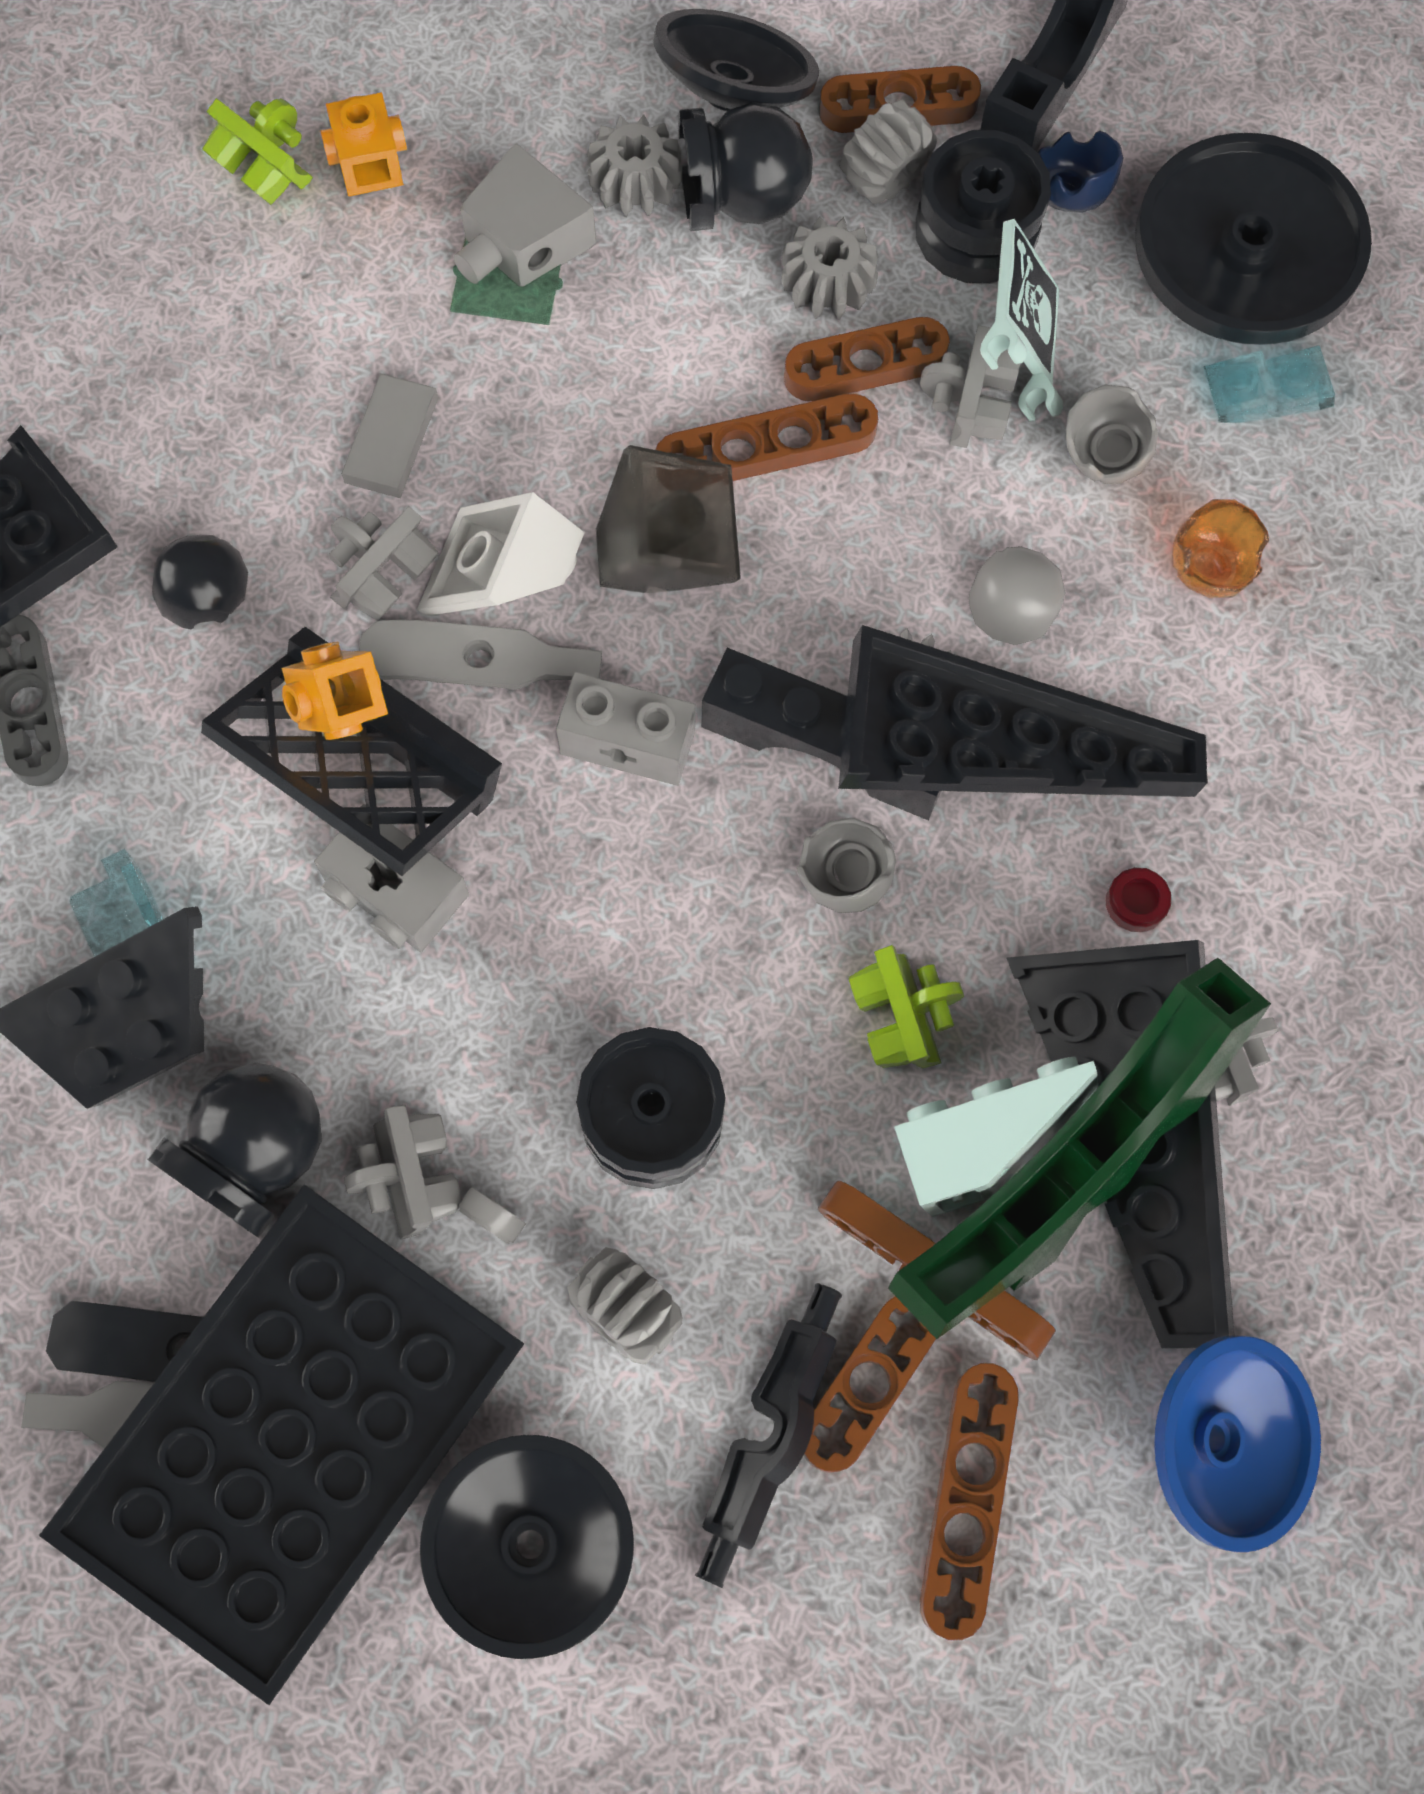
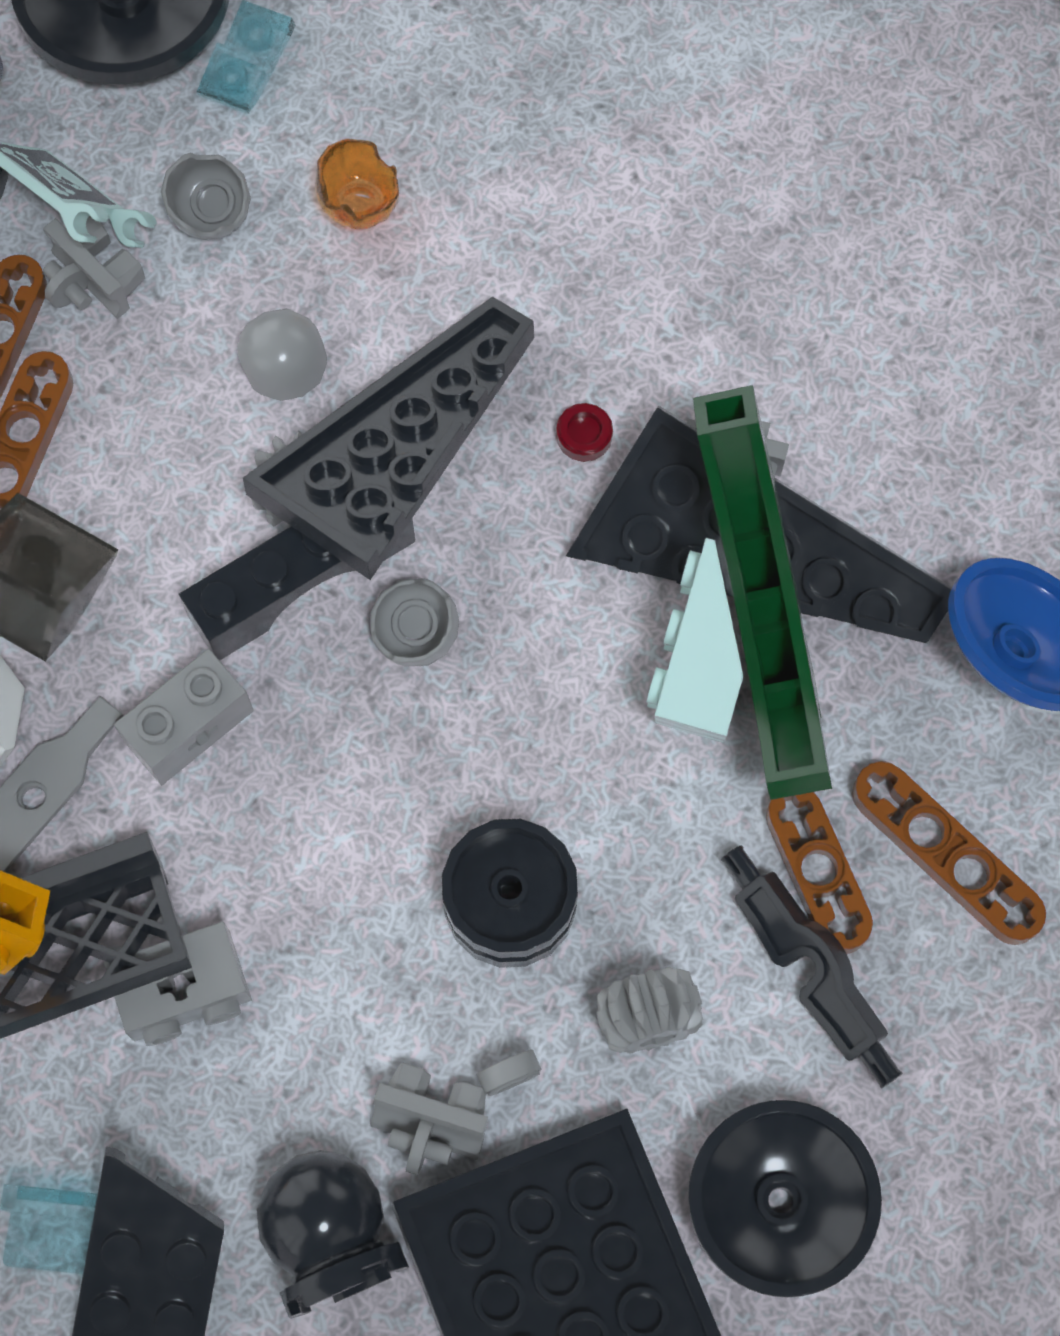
camera: 55 degrees left, 0 degrees up
(894, 983) = (528, 651): lime hips -> none
(897, 1240) = (746, 770): dark orange beam -> none

